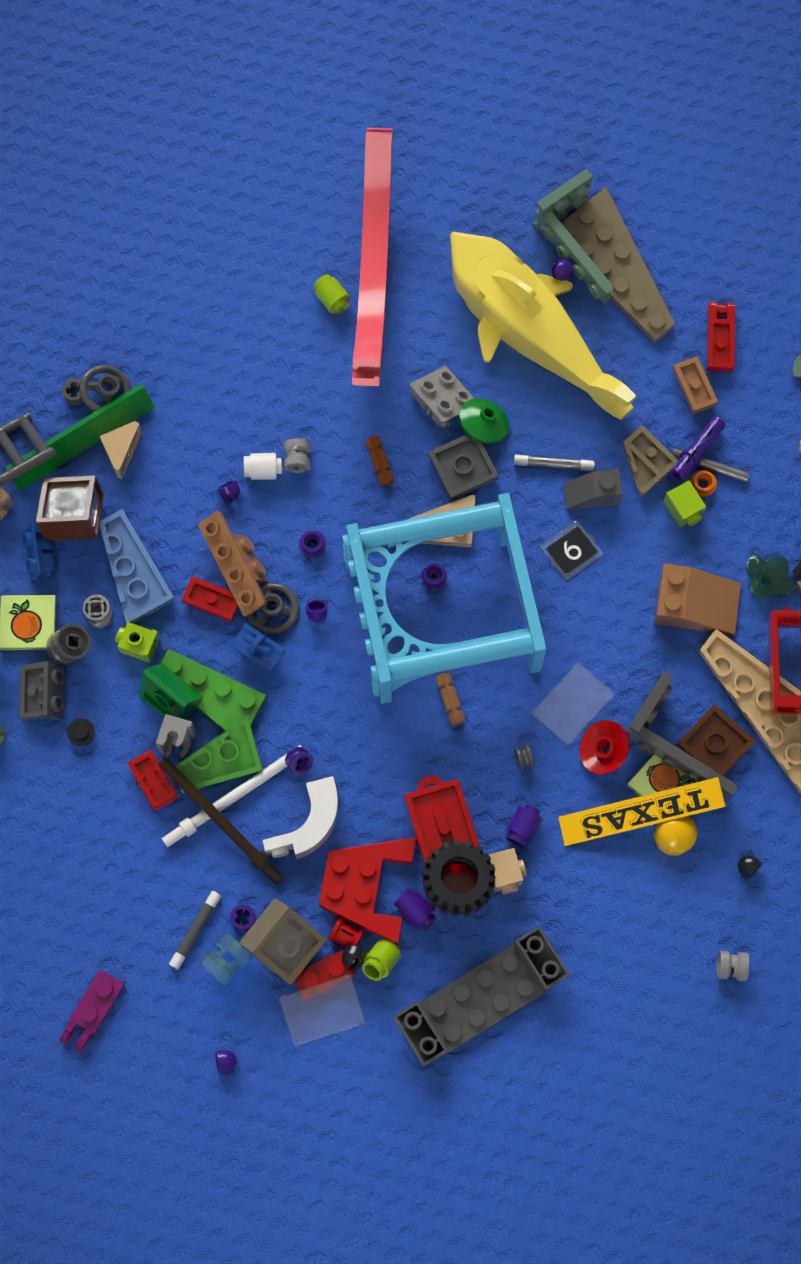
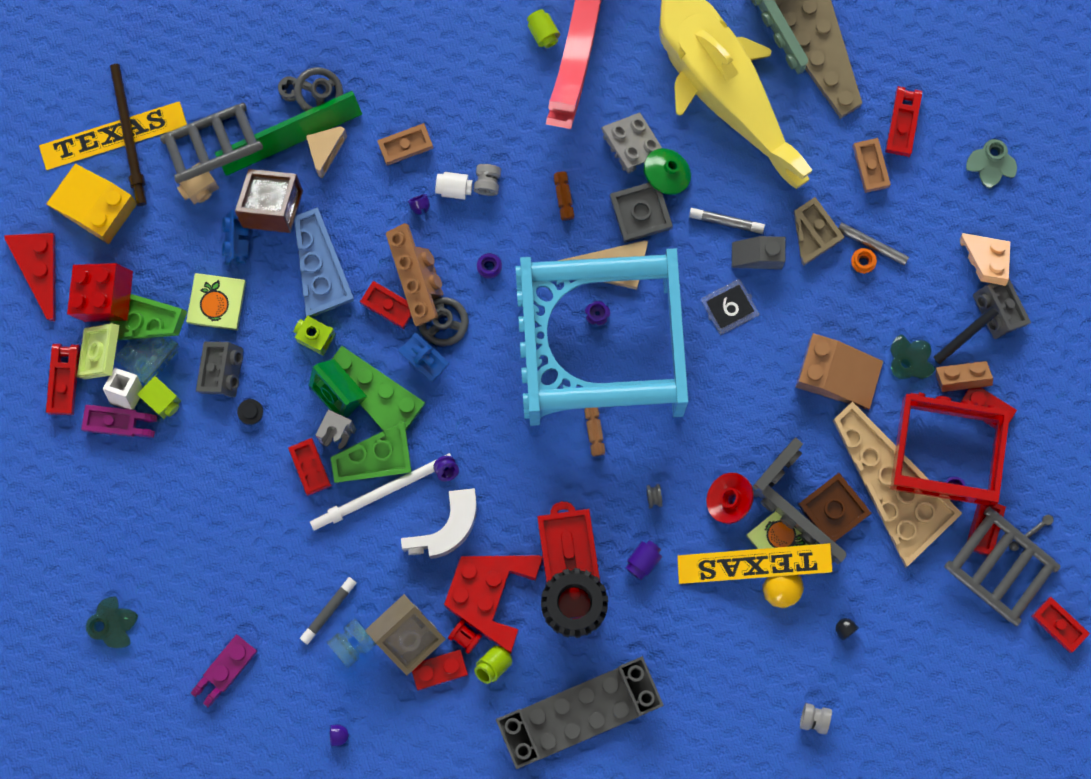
camera: 10 degrees right, 5 degrees up
(68, 644) = (249, 329): dark grey wheel -> none
(101, 615) = (281, 305): light grey wheel -> none
(205, 431) = (405, 144): none -> medium nougat plate
(234, 917) = (365, 603): dark purple bush -> none
(258, 859) = (396, 554): dark brown bar -> none
(316, 610) = (483, 329): dark purple hinge -> none
(322, 1010) = (432, 702): clear piece -> none
(353, 957) = (468, 659): black hinge -> none
(415, 909) = (531, 622): dark purple brick -> none
(508, 871) = (621, 599): tan brick -> none
(562, 269) = (763, 36): dark purple hinge -> none
(572, 704) = (707, 452): clear piece -> none
(682, 468) = (844, 245): dark purple pin -> none
(685, 505) = (843, 279): lime brick -> none

